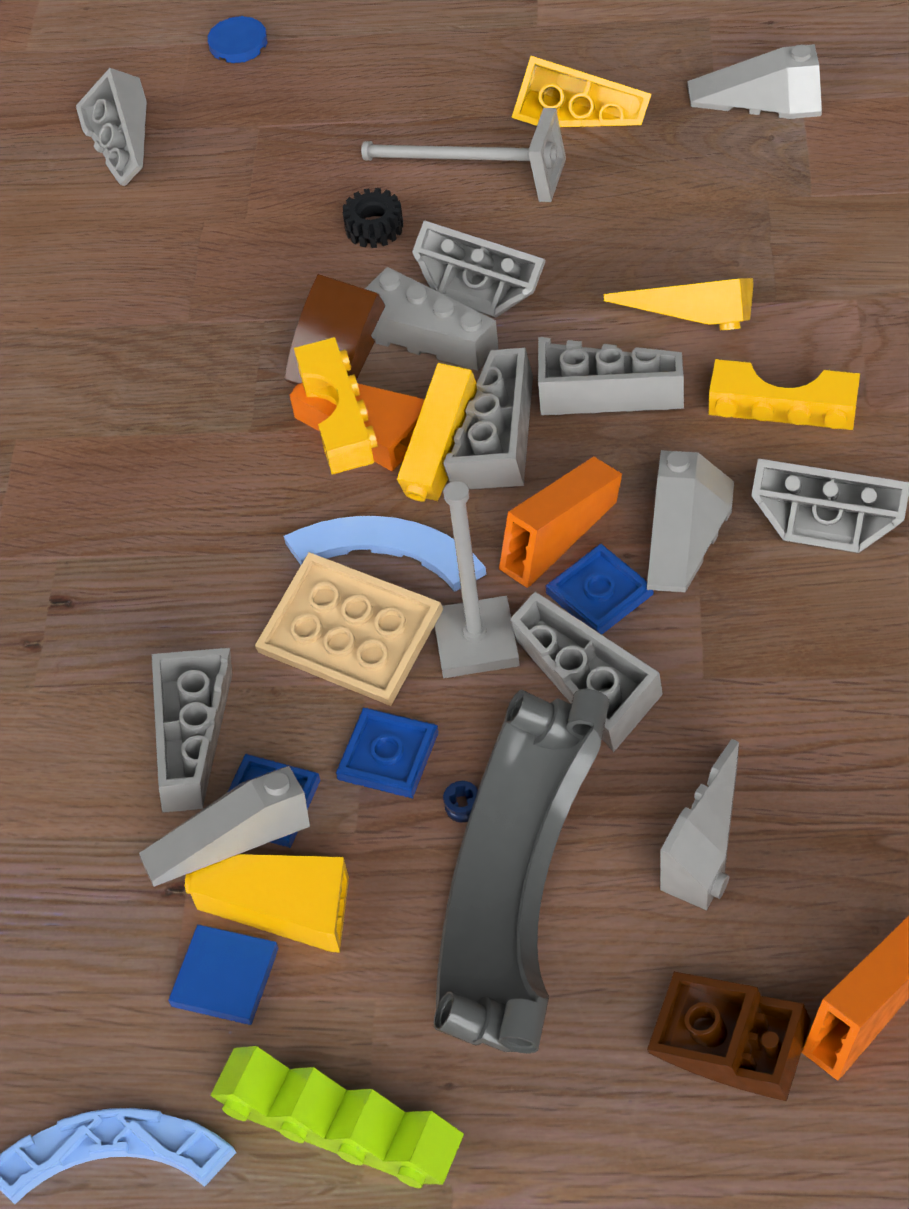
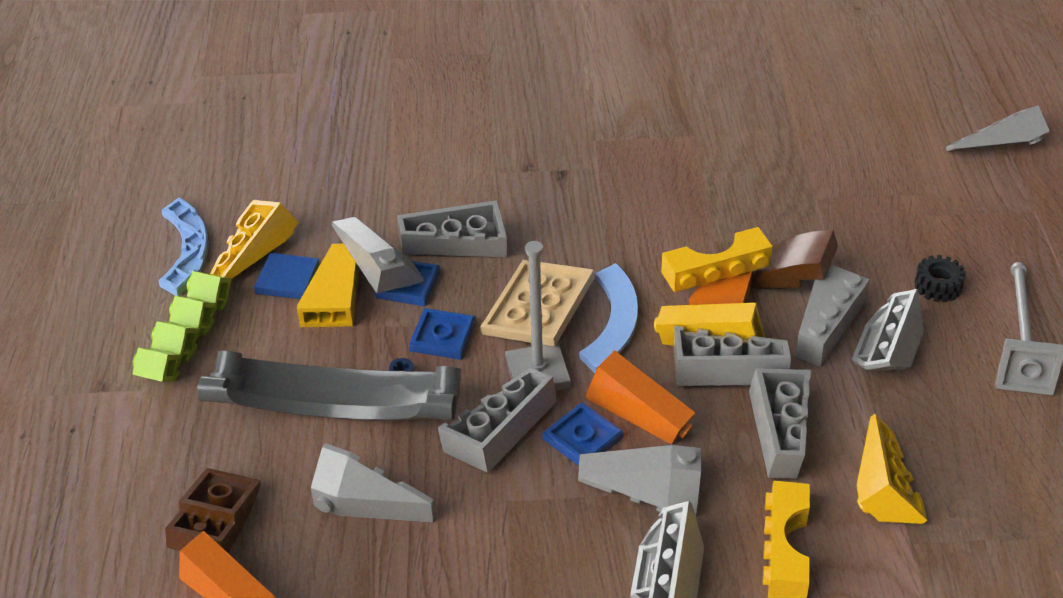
camera: 80 degrees right, 10 degrees down
(131, 1025) = (259, 231): none -> yellow wedge

